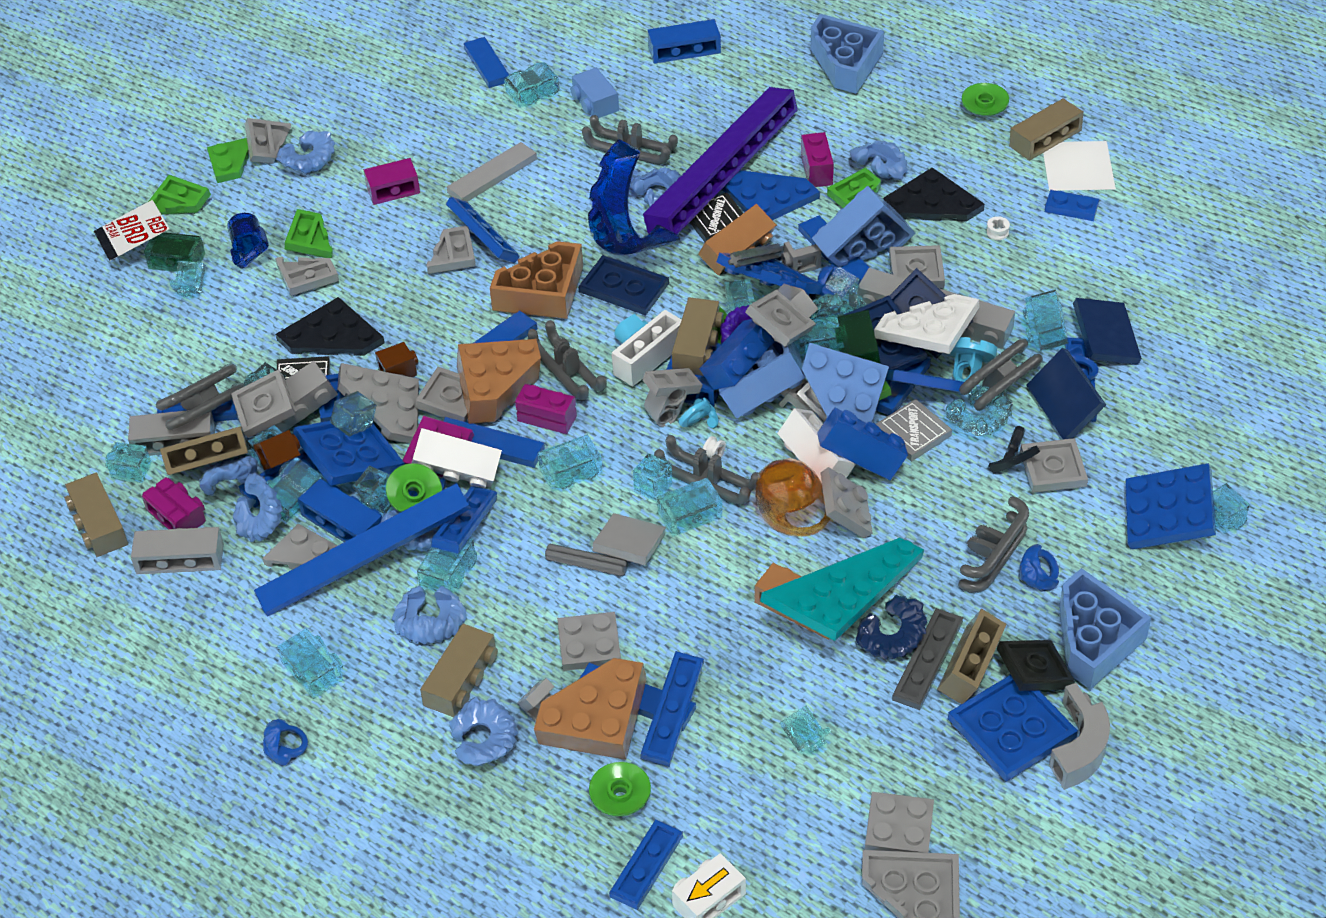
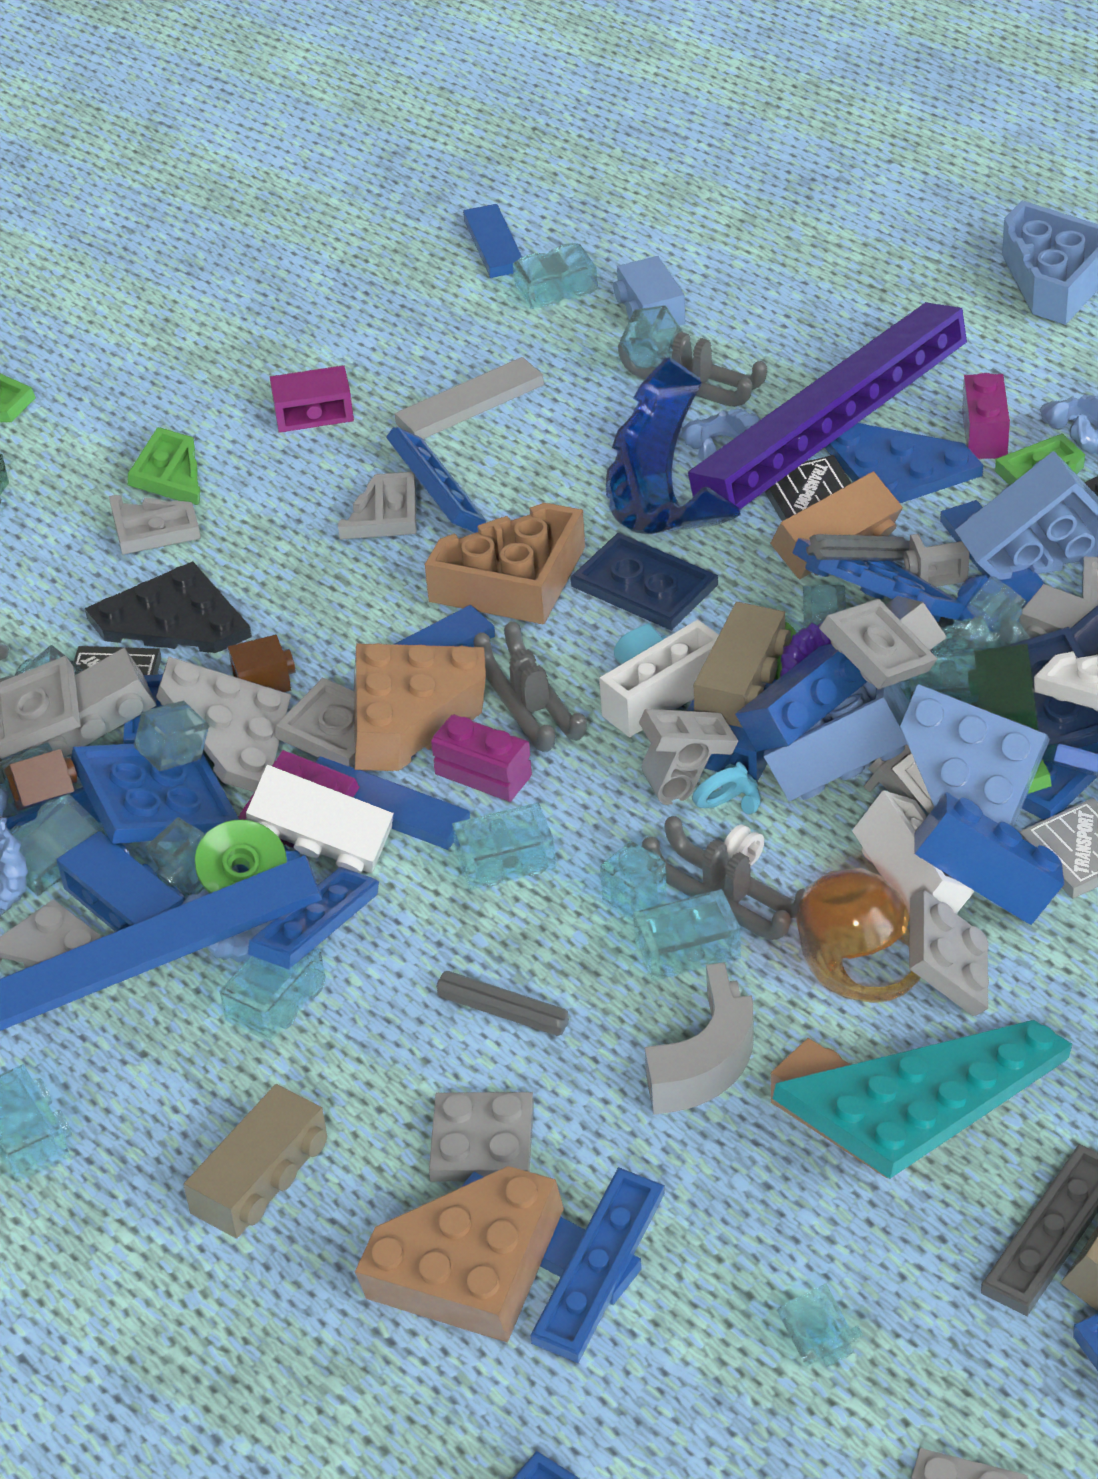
camera: 10 degrees right, 5 degrees down
(228, 159) = (76, 349): bright green wing -> none
(246, 238) = (71, 463): clear blue piece -> none
(265, 139) = (135, 325): light grey wing -> none
(313, 161) = (201, 361): medium blue piece -> none
(427, 628) = (221, 1086): medium blue piece -> none
(492, 716) = (305, 1272): medium blue piece -> none
(532, 699) = (376, 1212): light grey bracket -> none
(602, 124) = (650, 336): none -> clear light blue brick
(619, 778) = (480, 1373): bright green dish -> none
(629, 539) = (577, 976): light grey tile -> none
(684, 41) = (803, 229): blue brick -> none
(715, 584) = (710, 1062): none -> light grey arch
(903, 641) = (1010, 1195): dark blue piece -> none

